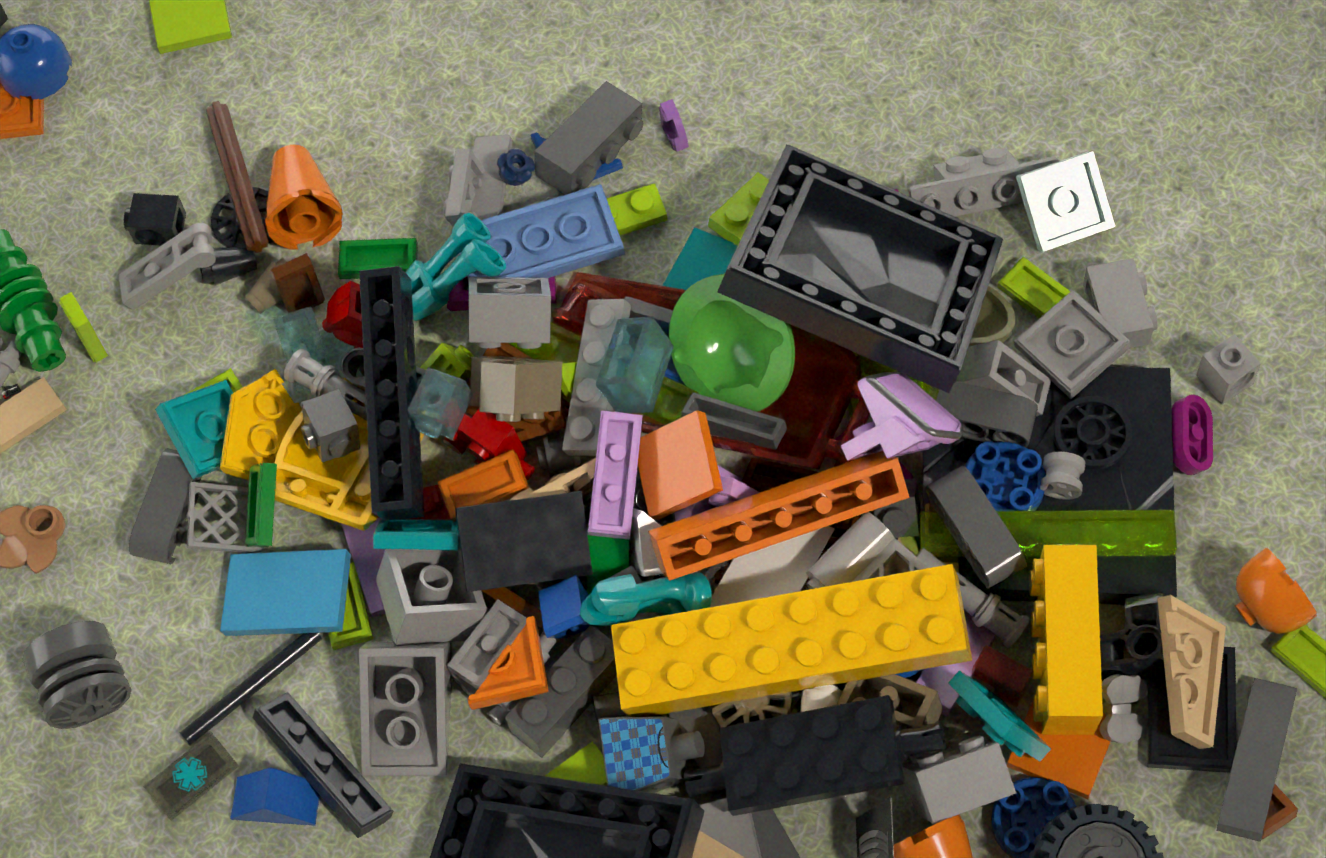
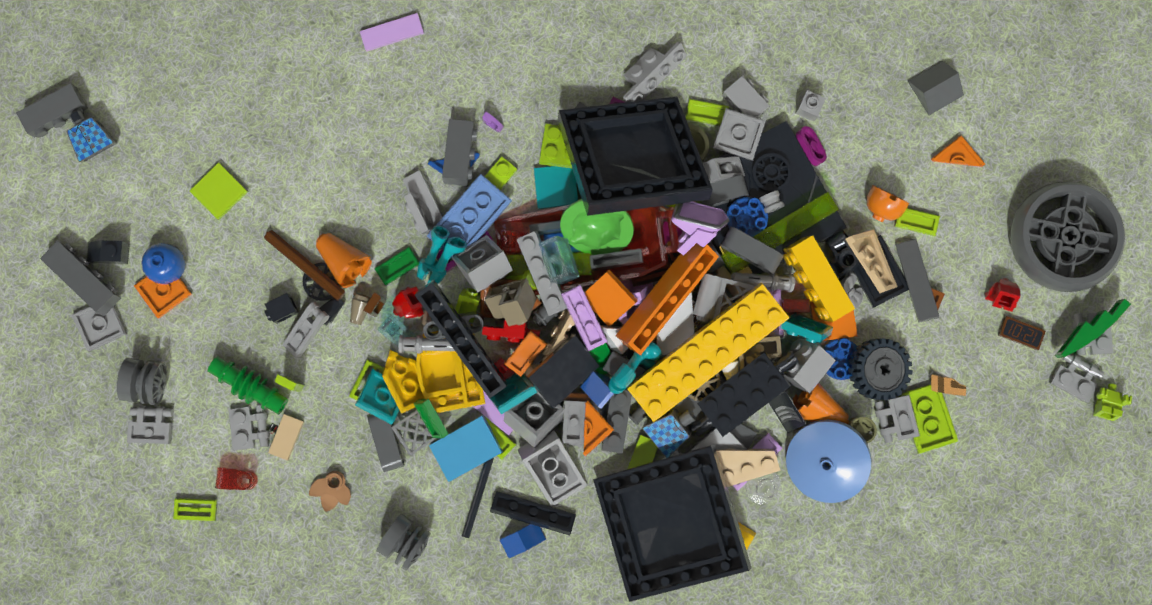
camera: 35 degrees left, 20 degrees up
(191, 776) = (479, 551): clear smoke tile -> none
(329, 426) = (438, 366): dark grey brick -> none
(439, 404) = (488, 333): clear light blue brick -> none
(512, 175) = (434, 191): dark blue plate -> none
(1065, 201) = (694, 62): light aqua plate -> none

